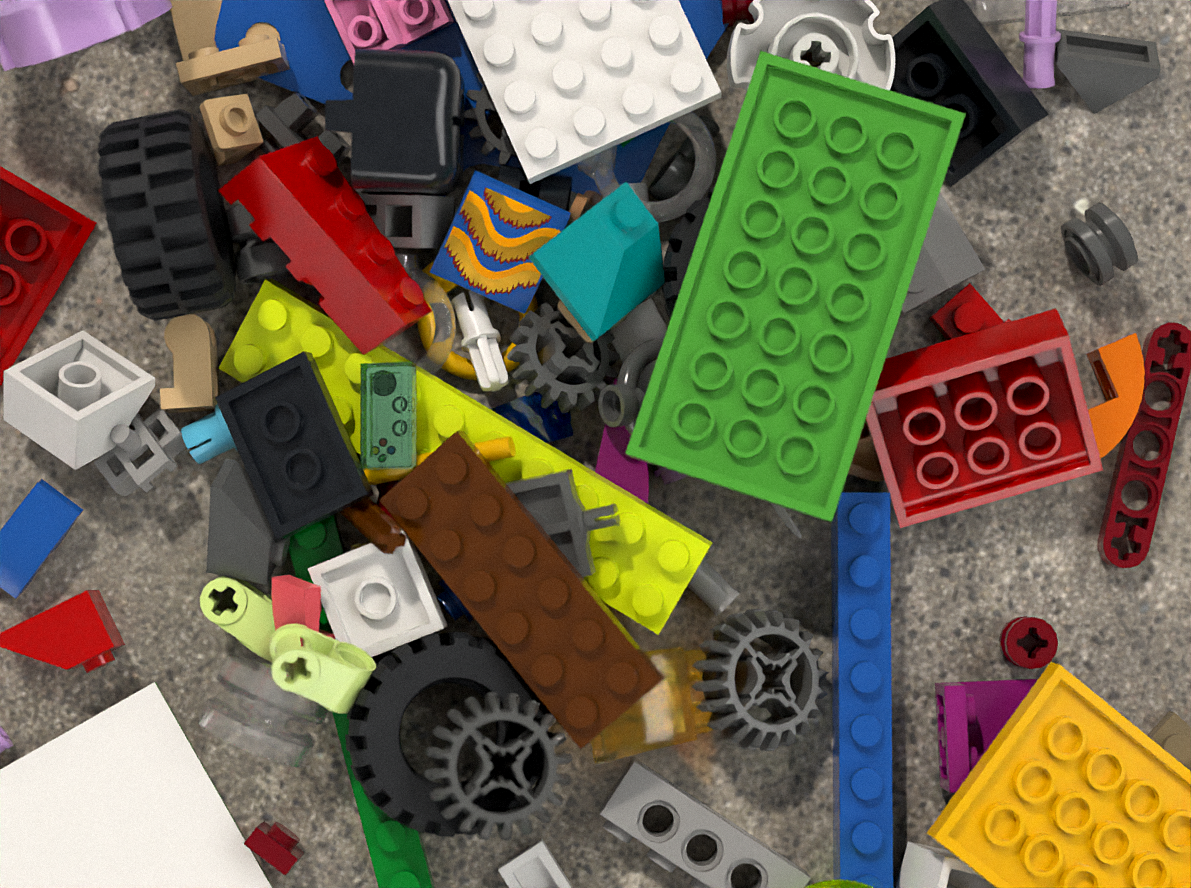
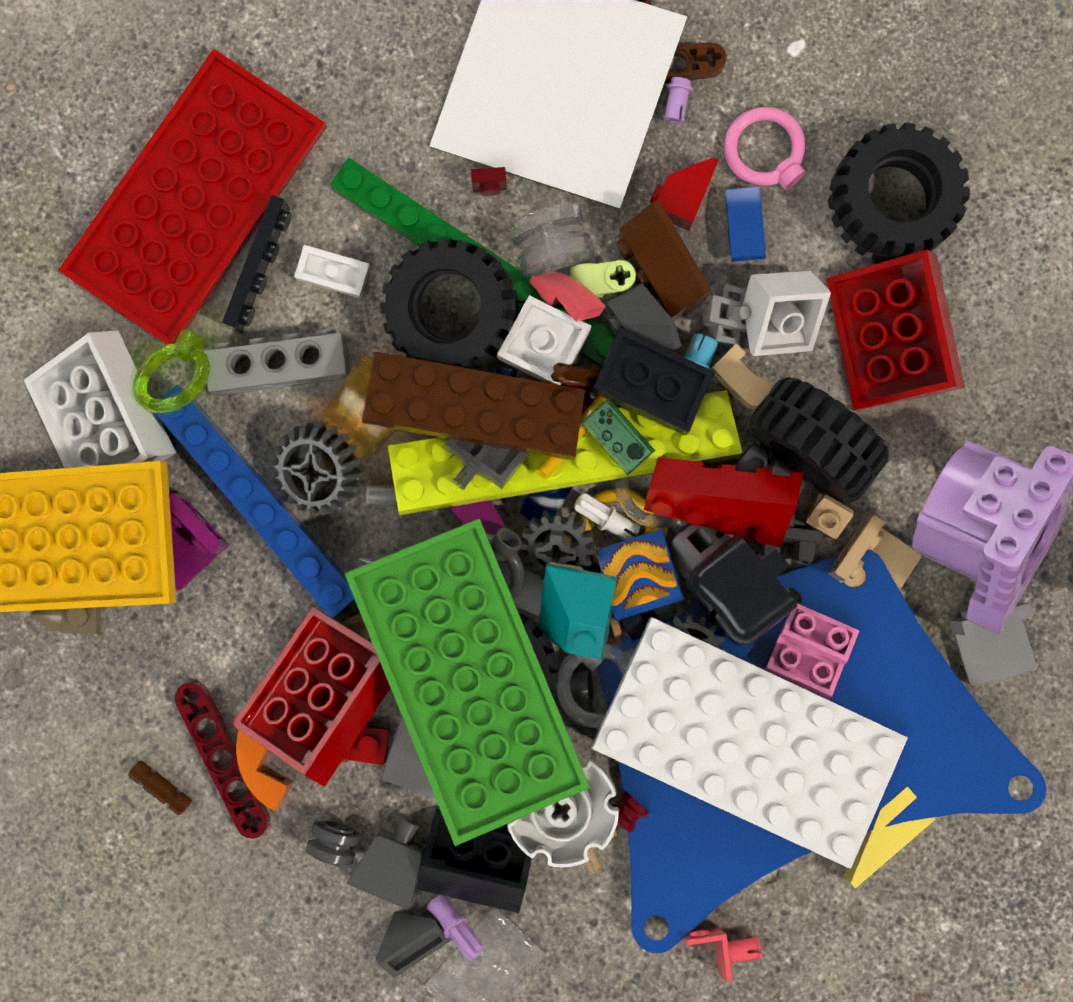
camera: 145 degrees right, 0 degrees up
(160, 575) = (663, 261): none -> reddish brown slope
(321, 668) = (537, 280): yellowish green piece -> none
(478, 783) = (409, 290): dark grey gear -> none
(1017, 642) = (205, 602): dark red wheel -> none
(1055, 165) = (391, 865): none -> dark grey torso

